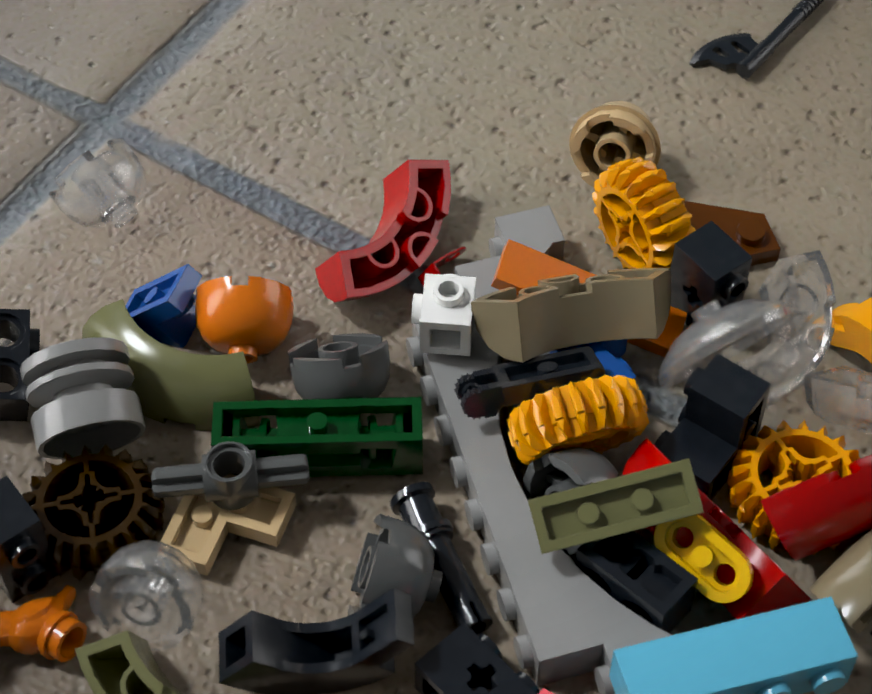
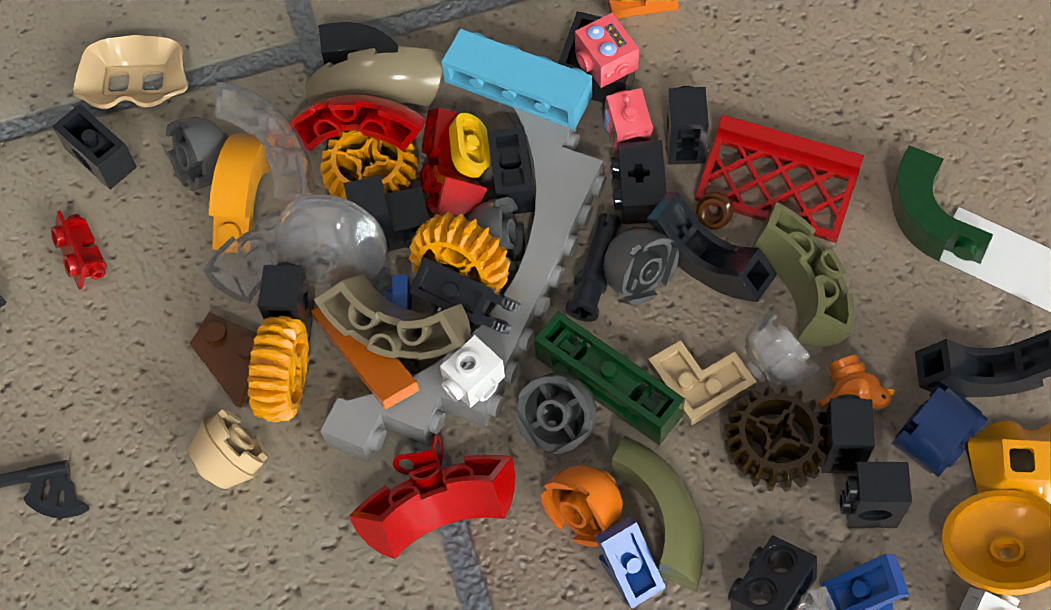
camera: 135 degrees left, 10 degrees up
(82, 397) = (740, 497): light grey wheel -> none
(230, 459) = (700, 390): dark grey axle -> none
(615, 506) = (498, 179): olive plate -> none

